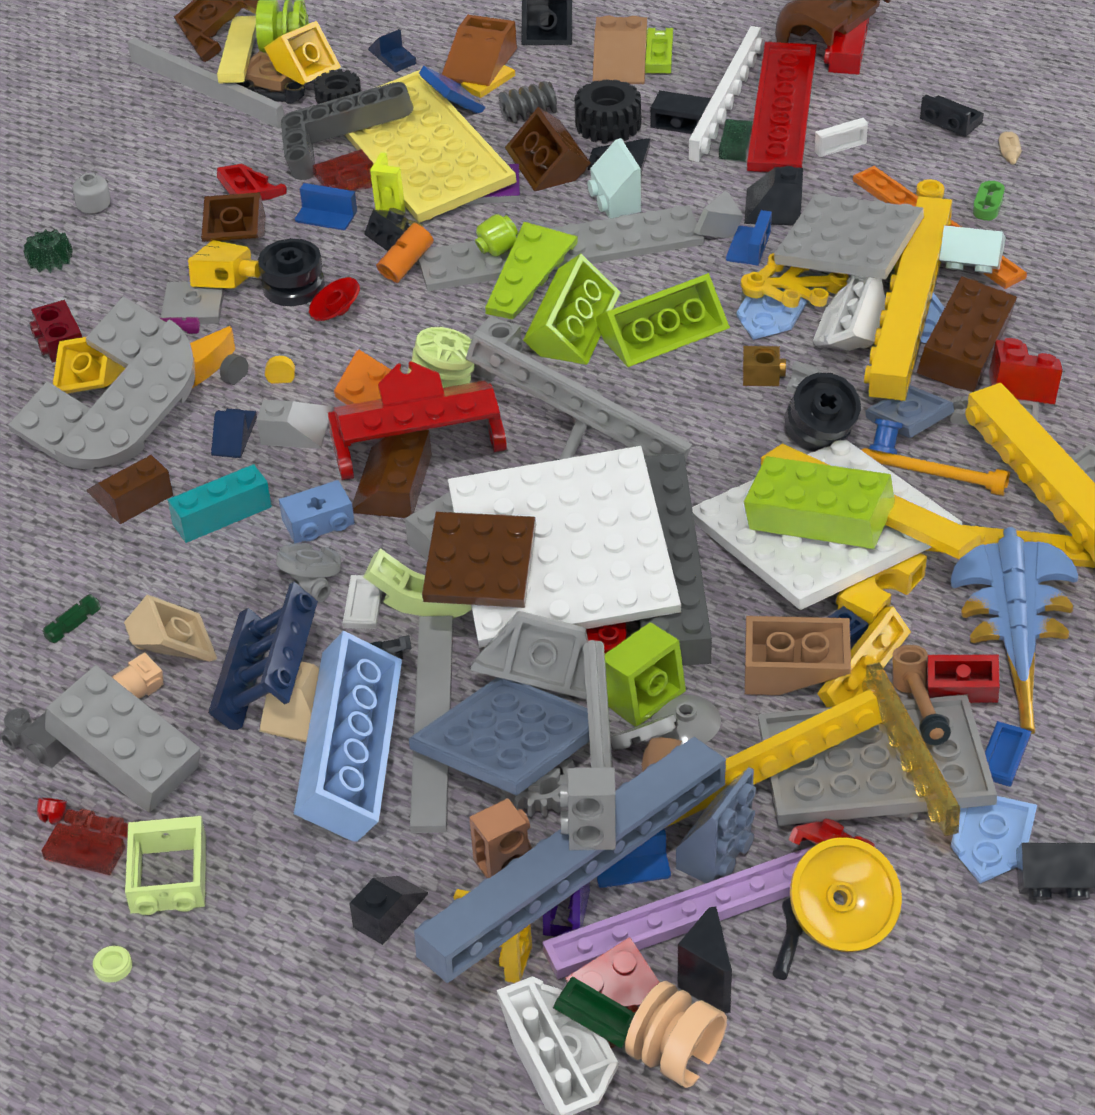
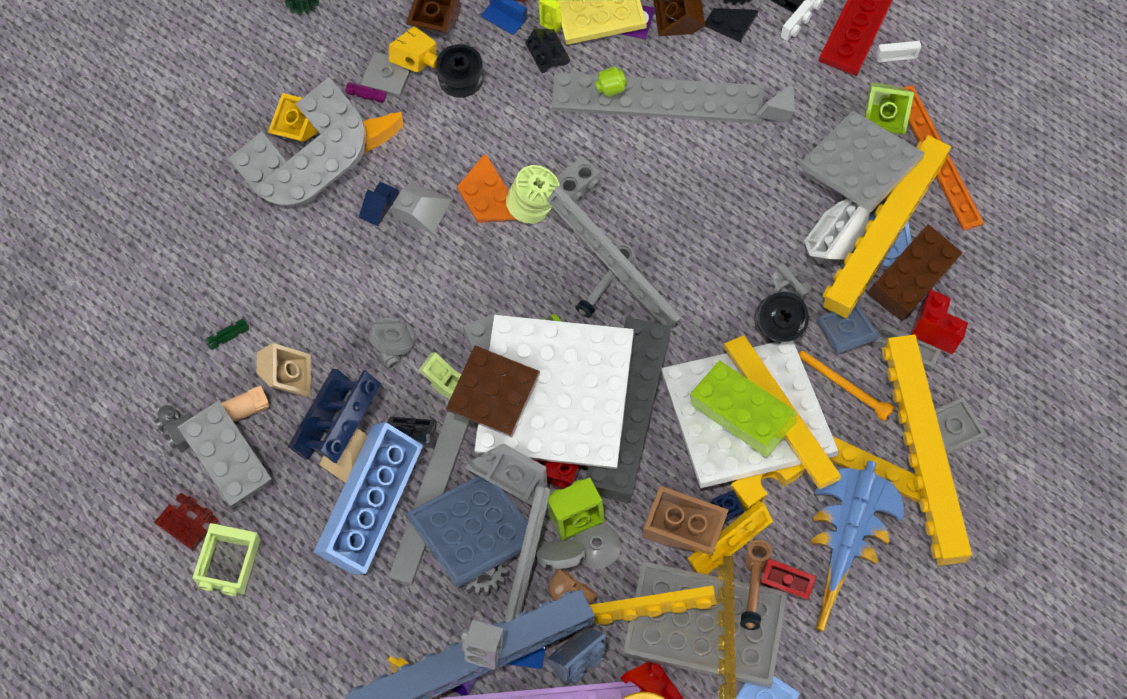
camera: 15 degrees right, 20 degrees up
(51, 809) = (170, 488): red hinge -> none
(53, 324) = (286, 72): dark red brick -> none
(112, 964) = (174, 621): yellowish green tile -> none
(133, 489) = (296, 235): reddish brown slope -> none
(219, 503) = (348, 268): teal brick -> none
(233, 368) = (395, 147): dark grey tile -> none
(279, 370) = (425, 157): yellow tile -> none
(316, 511) = (400, 289): medium blue brick -> none
(334, 299) = (482, 103): red dish -> none
(362, 604) = (415, 383): white tile -> none
(384, 906) = (354, 634): black slope -> none
(394, 475) = (472, 276): reddish brown slope -> none
(405, 253) = (544, 76): orange pin -> none
(411, 405) = (499, 235): red piece -> none
(499, 836) = (437, 615): nougat brick -> none
(527, 267) = (630, 109): lime wing -> none
(566, 317) = (643, 166): lime slope -> none
(616, 181) = (715, 52): light aqua slope -> none
(663, 321) = (704, 192): lime slope -> none
(735, 139) = (820, 30): clear green plate -> none
(750, 242) = (794, 132): blue panel -> none
(760, 284) = (806, 183): yellow plant -> none
(762, 366) = (760, 248): pearl gold brick -> none
(768, 316) = (786, 200): light blue tile -> none
(776, 192) = (827, 98): black slope -> none
(855, 179) = (889, 107): none -> lime slope
(885, 436) = (820, 348): blue bush -> none
(930, 188) = (945, 120): yellow tile -> none
(950, 115) = (989, 51): black bracket -> none
(972, 248) = (949, 193): light aqua slope -> none
(982, 199) = (988, 145): bright green beam -> none
(1006, 752) = (796, 642): blue tile -> none
(1010, 146) = (1022, 94): tan piece -> none

